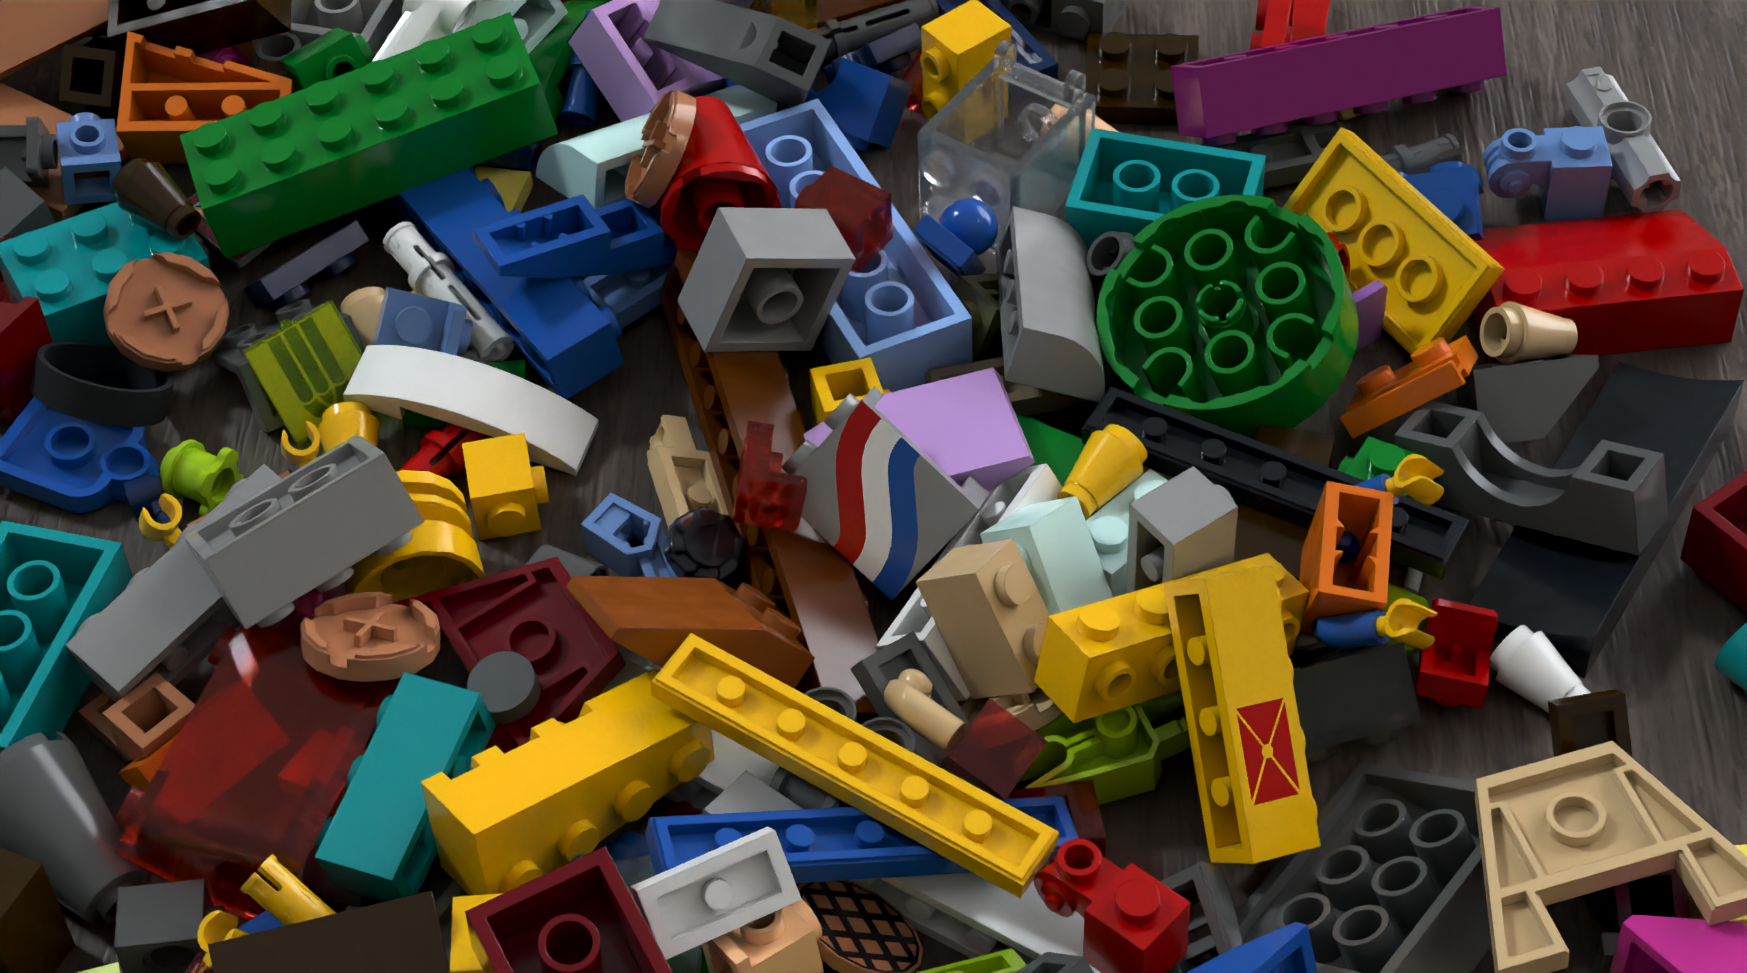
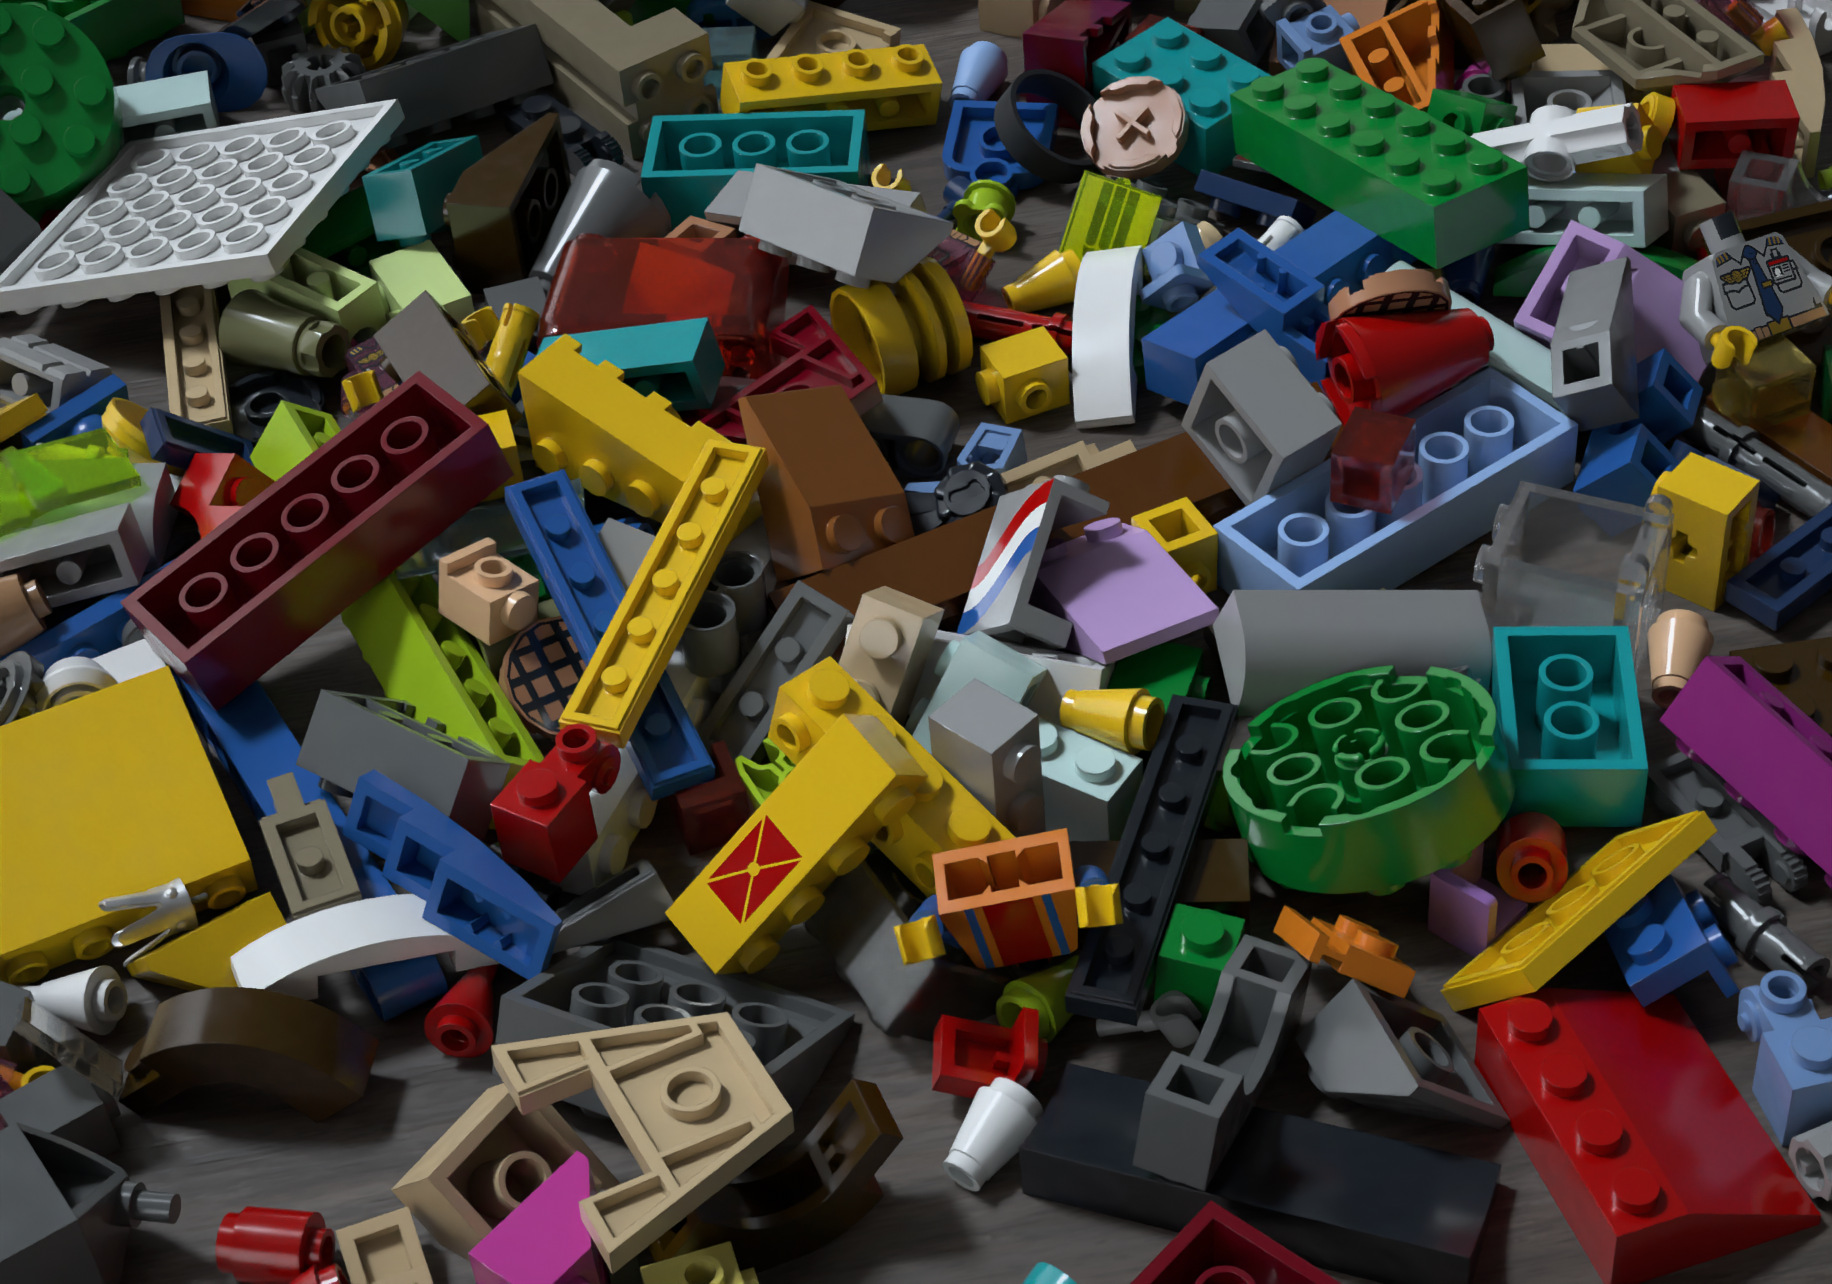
camera: 80 degrees right, 5 degrees down
(154, 197) = (1232, 65): dark brown cone -> none
(370, 637) = (757, 301): nougat tile -> none
(506, 685) = (730, 385): dark grey tile -> none
(716, 892) = (491, 521): white plate -> none
(762, 492) = (1002, 470): clear red bracket -> none
(911, 703) = (753, 625): tan arm -> none
(963, 233) = (1408, 560): blue tile -> none
(997, 748) = (726, 698): clear red panel -> none
(1524, 334) = (1460, 1039): tan cone -> none

